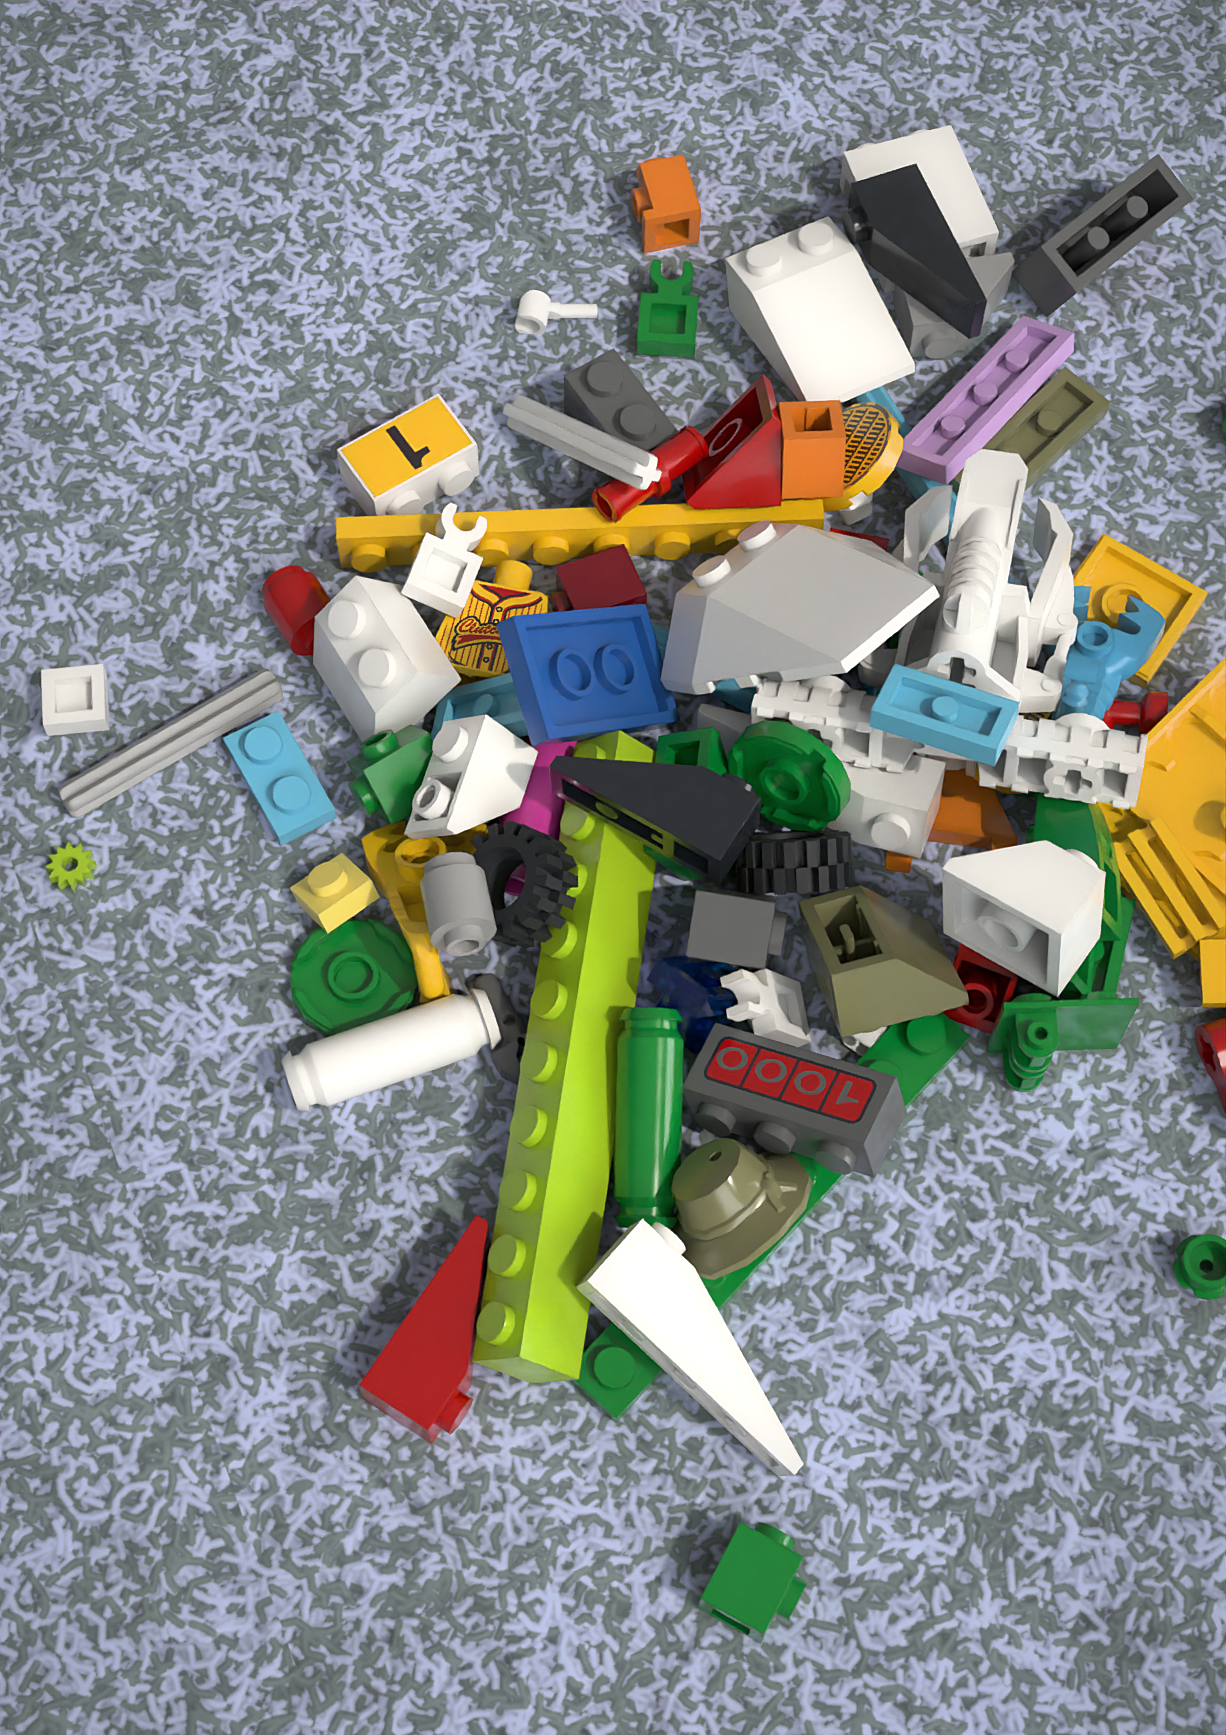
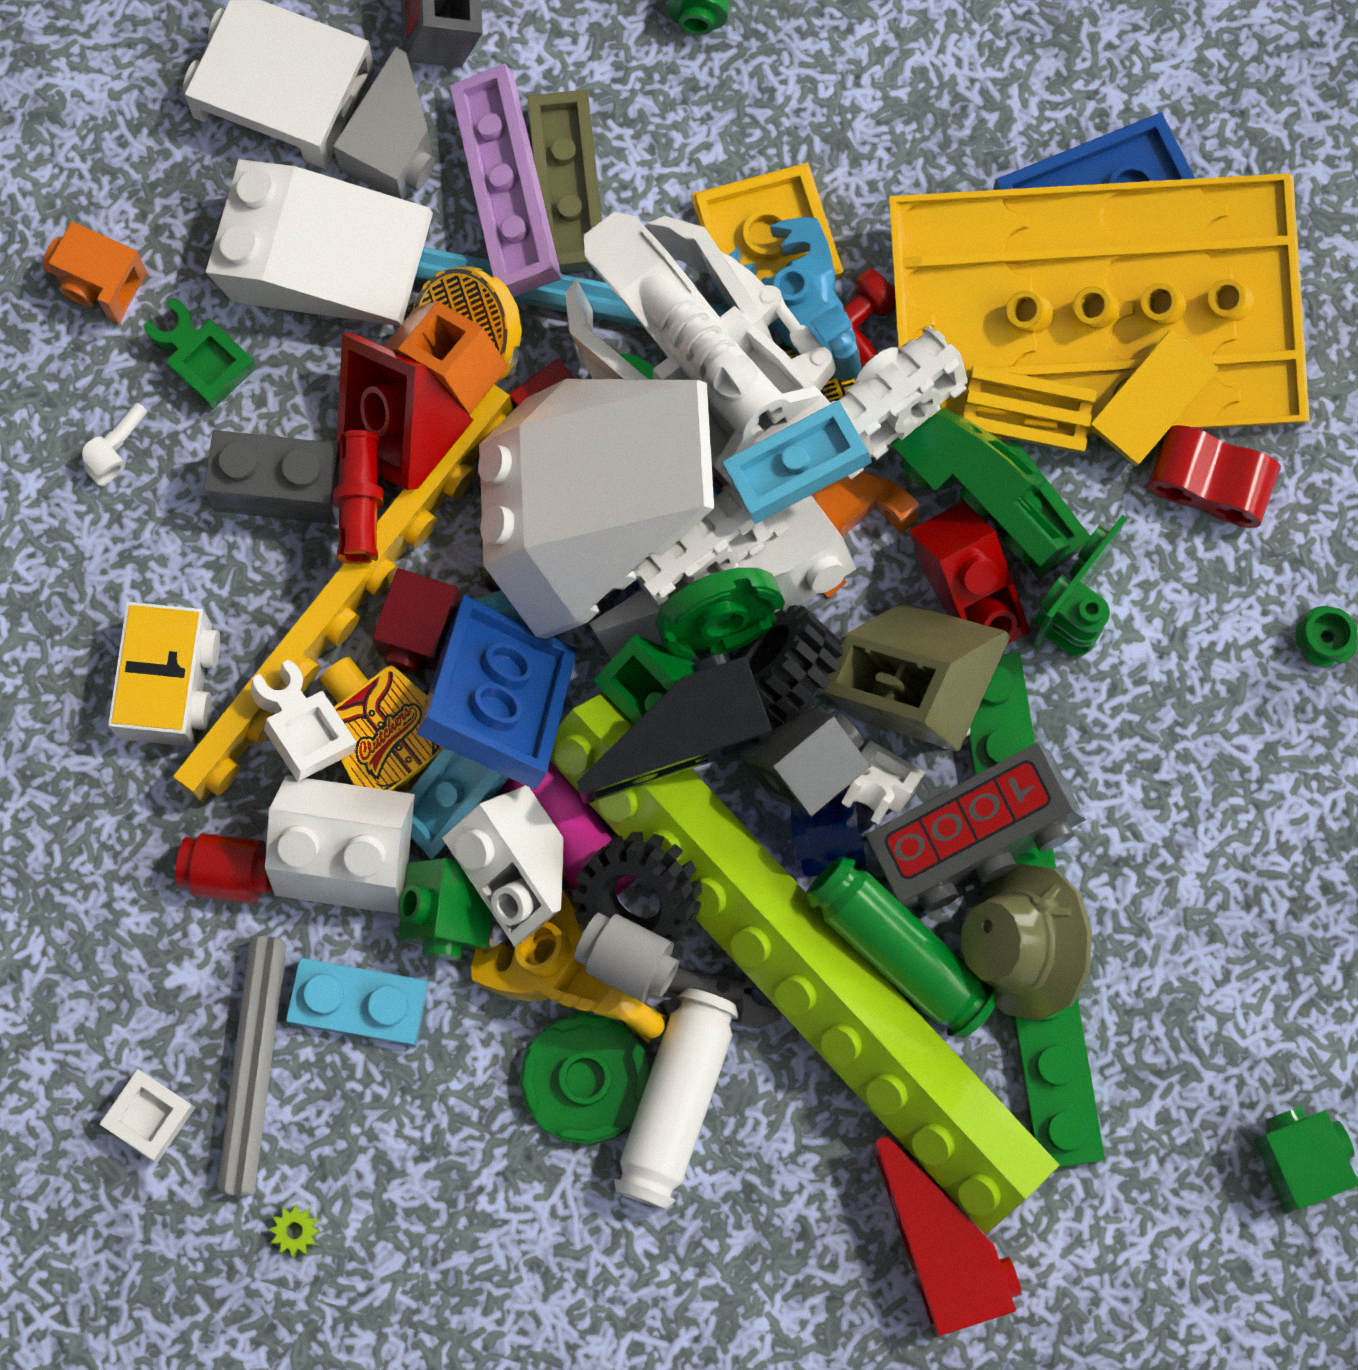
camera: 50 degrees left, 10 degrees up
(334, 892) = (502, 1037): light yellow plate -> none
(582, 442) = (279, 526): white axle -> none
(670, 1315) = (1074, 1057): white slope -> none
(913, 246) = (333, 120): black slope -> none
(1026, 909) = (1003, 536): white slope -> none

